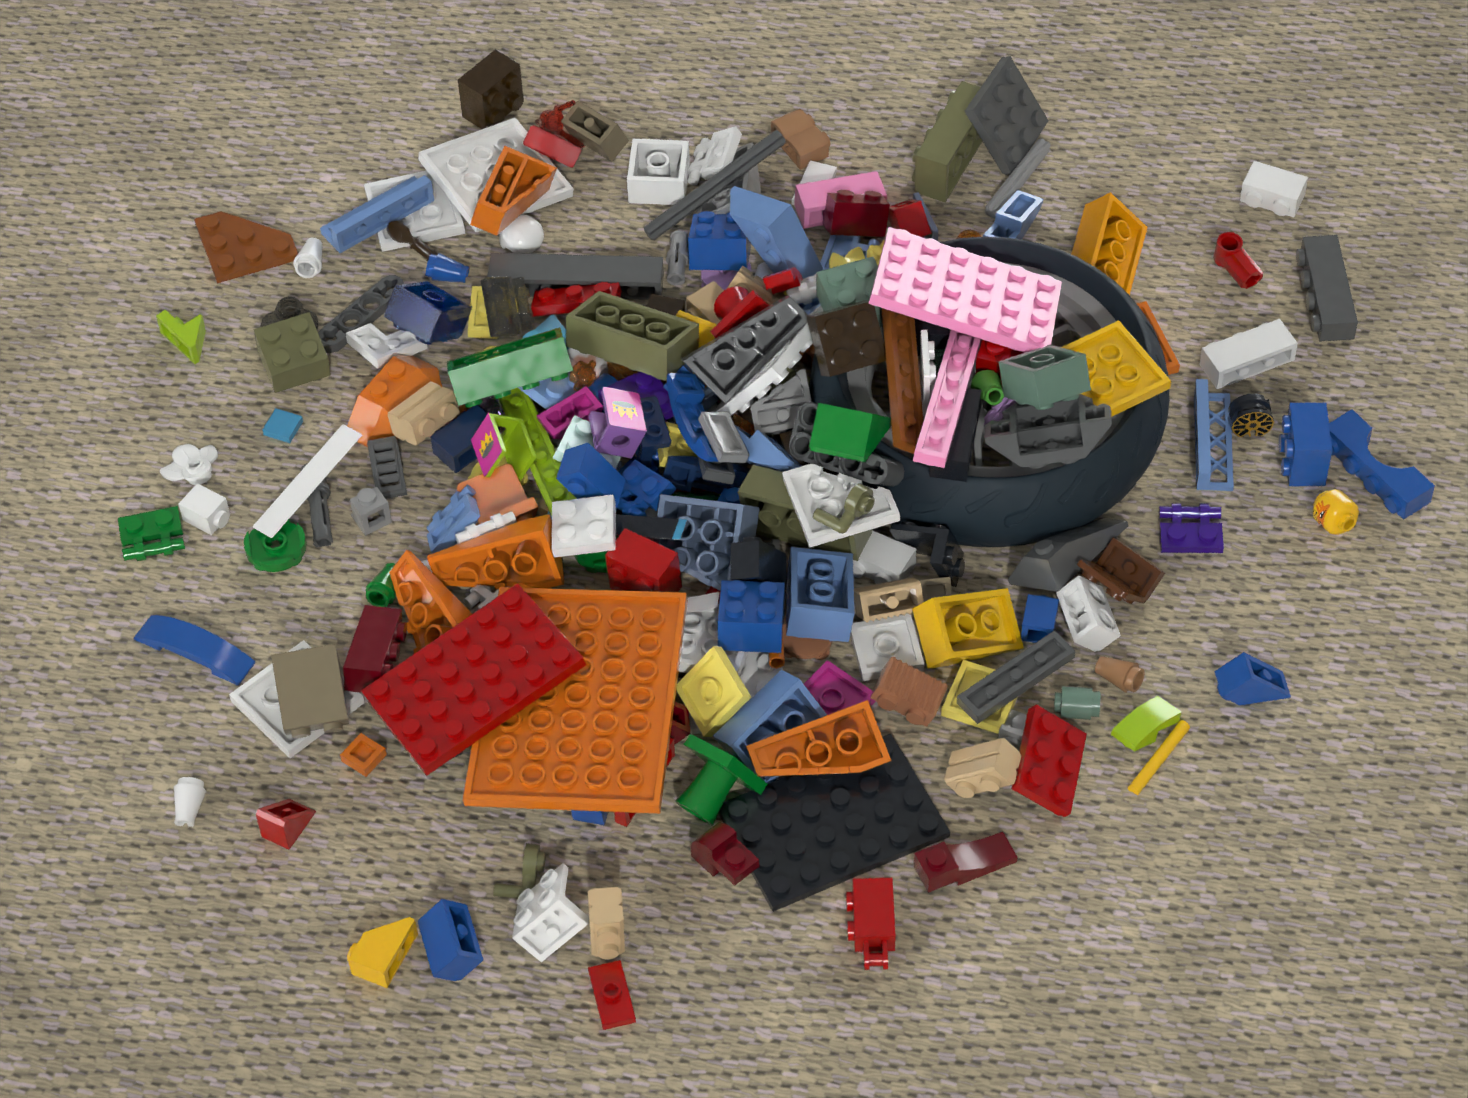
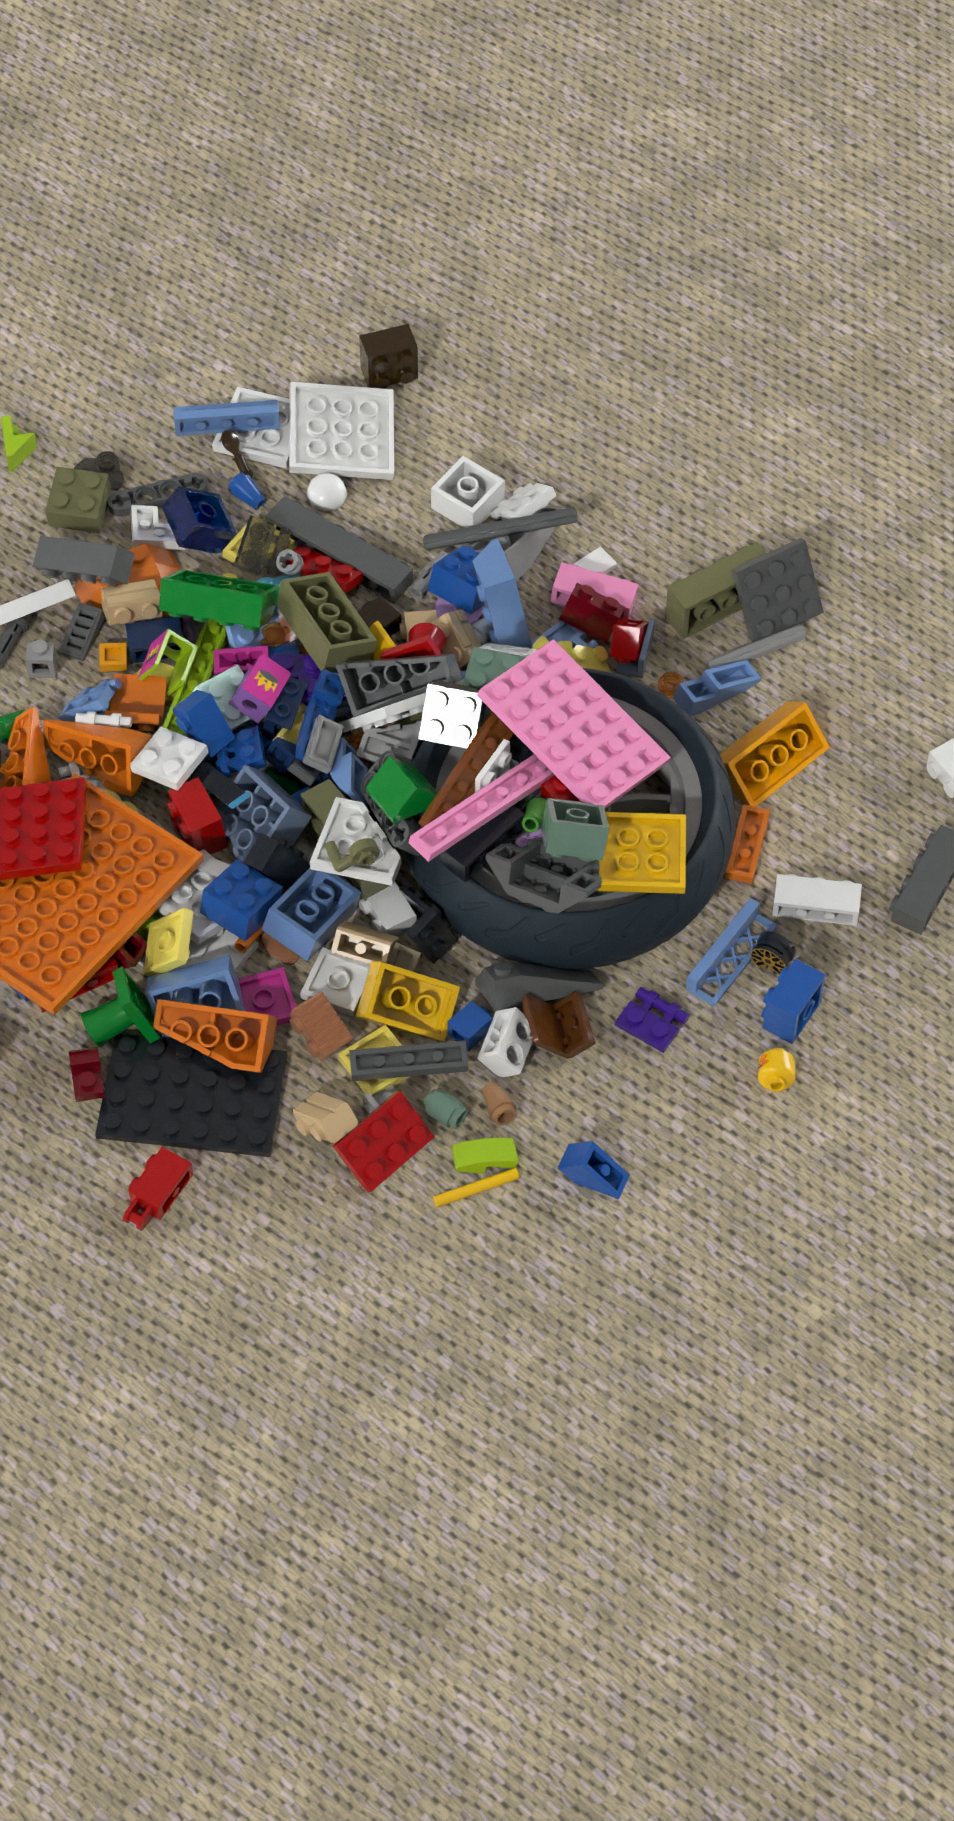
camera: 30 degrees right, 5 degrees up
(242, 246) = (112, 391): dark orange plate -> none
(282, 425) = (27, 554): dark azure tile -> none
(309, 259) = (151, 429): white cone -> none
(348, 398) = (83, 560): none -> dark grey brick
(436, 474) = (113, 657): none -> light orange plate
(511, 190) = (330, 451): orange wedge -> none
(536, 302) = (293, 569): none -> light grey bush
(551, 121) = (421, 408): clear red plant -> none
(552, 146) = (405, 428): red slope -> none
(595, 130) = (445, 433): dark tan brick -> none
(783, 280) = (478, 638): red slope -> none
(802, 138) = (606, 523): medium nougat brick -> none
(963, 861) = (258, 1181): dark red slope -> none
(1236, 261) = (874, 816): red piece -> none
(1400, 488) = (847, 1080): blue arch -> none

